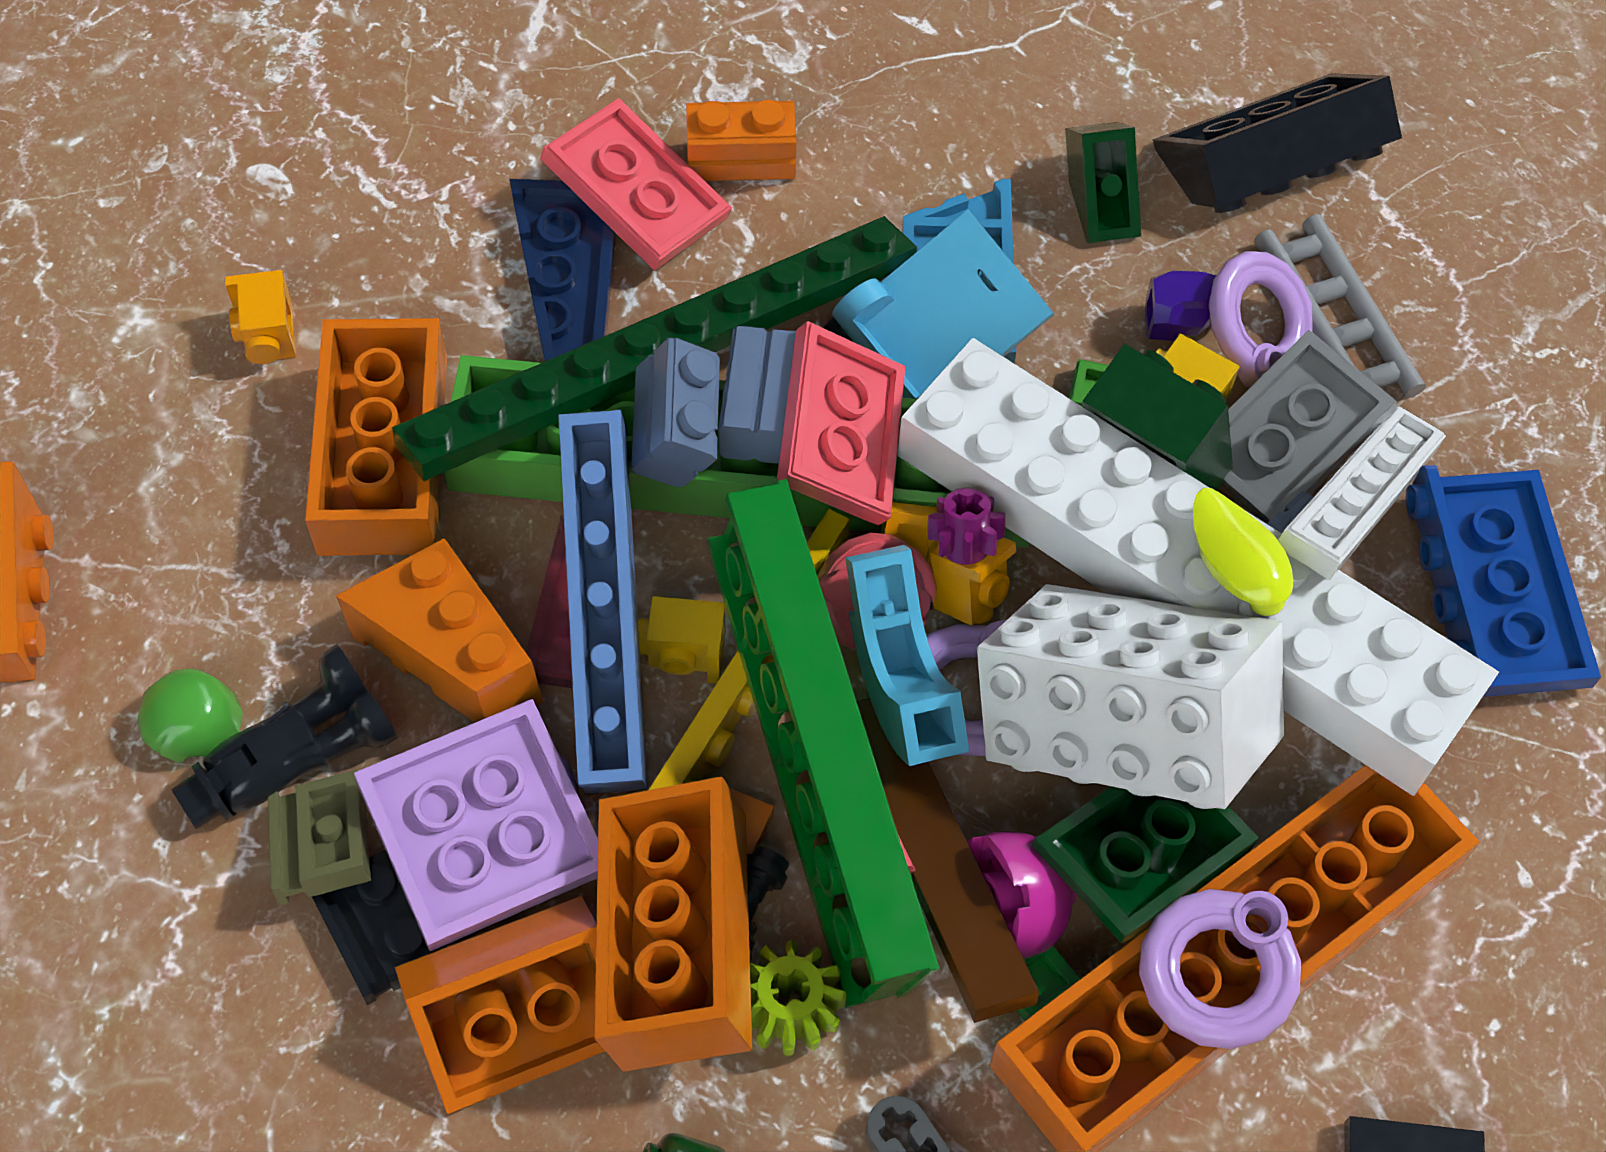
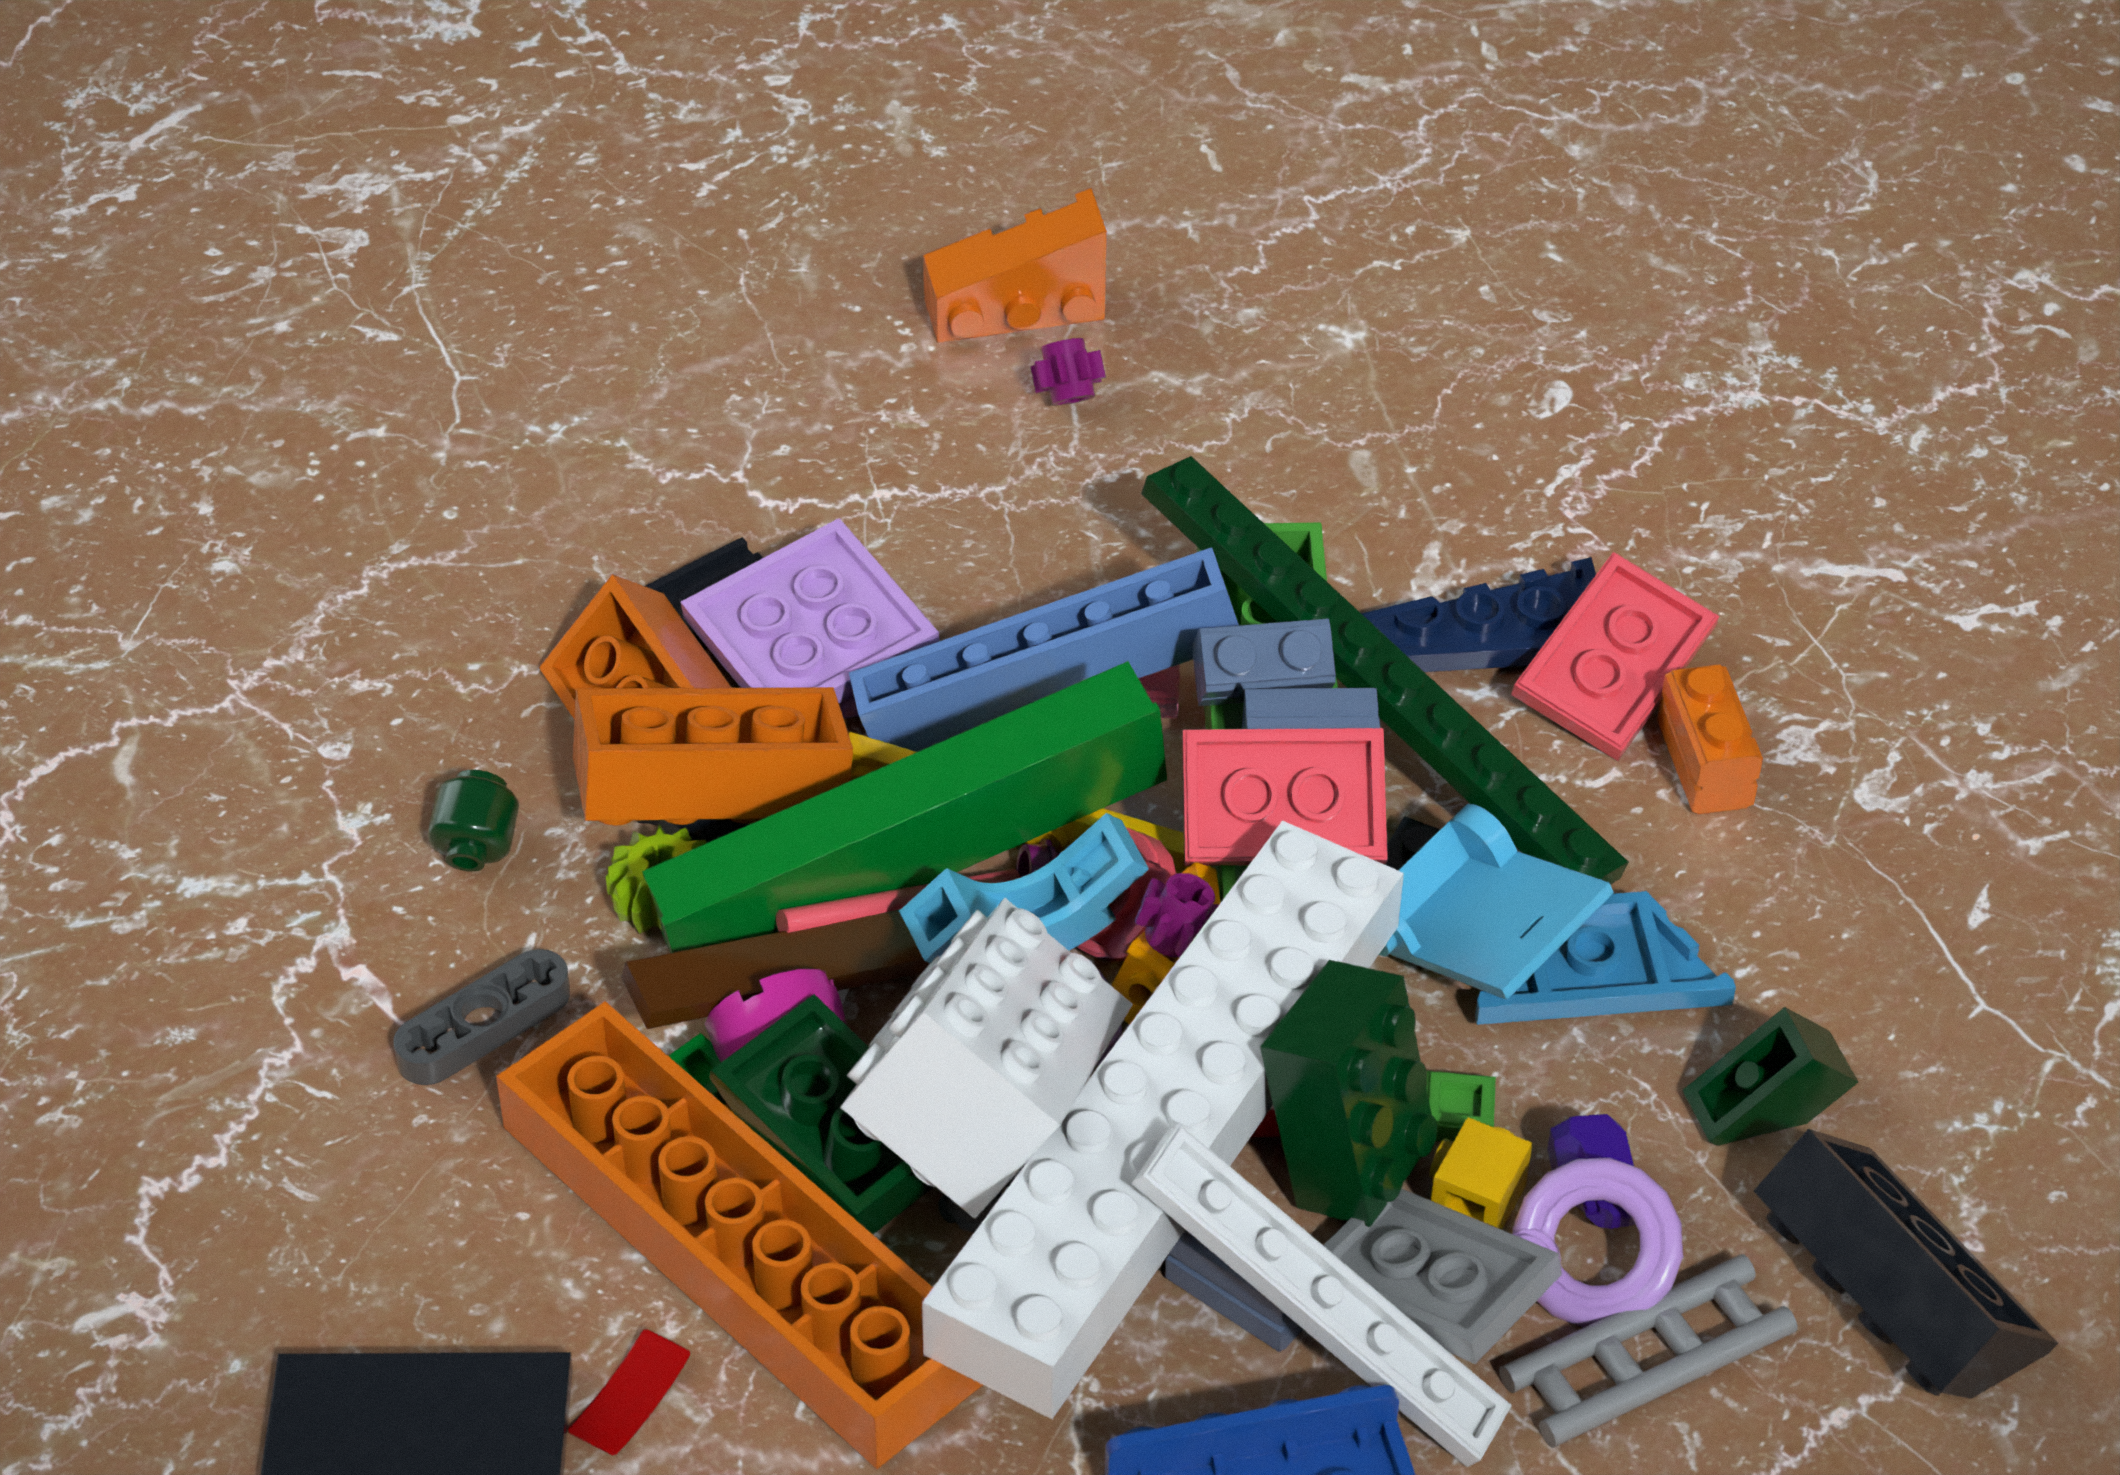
camera: 85 degrees right, 15 degrees down
(147, 552) = (1068, 371): none -> magenta gear
(188, 714) = (909, 436): bright green hair -> none
(262, 315) = (1360, 407): light orange brick -> none
(284, 746) = (893, 505): black piece -> none
(318, 838) = (770, 522): olive plate -> none
(359, 483) = (1274, 470): orange brick -> none
(443, 631) = (1011, 565): orange wedge -> none
(1241, 553) = (1143, 1090): neon yellow arm -> none
(1275, 951) = (740, 1187): lavender piece -> none
(1376, 1072) = (631, 1393): none -> red sticker

